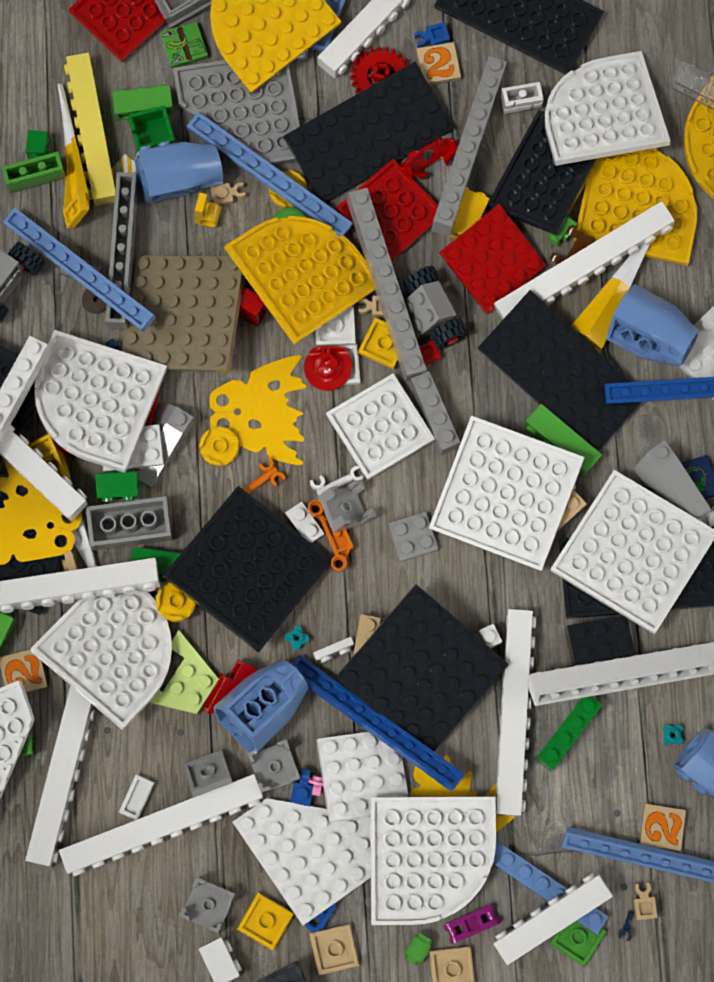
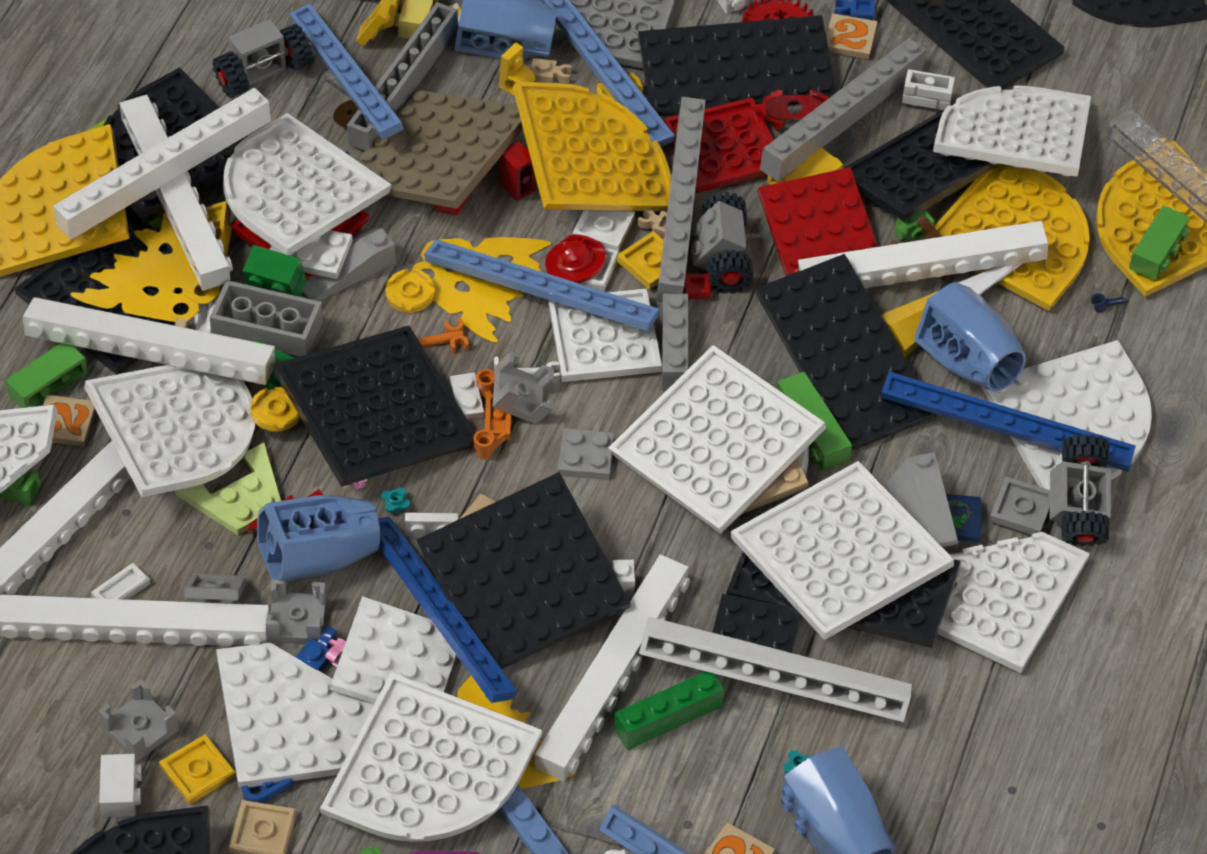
camera: 25 degrees right, 25 degrees down
(316, 406) = (542, 285): none -> medium blue plate

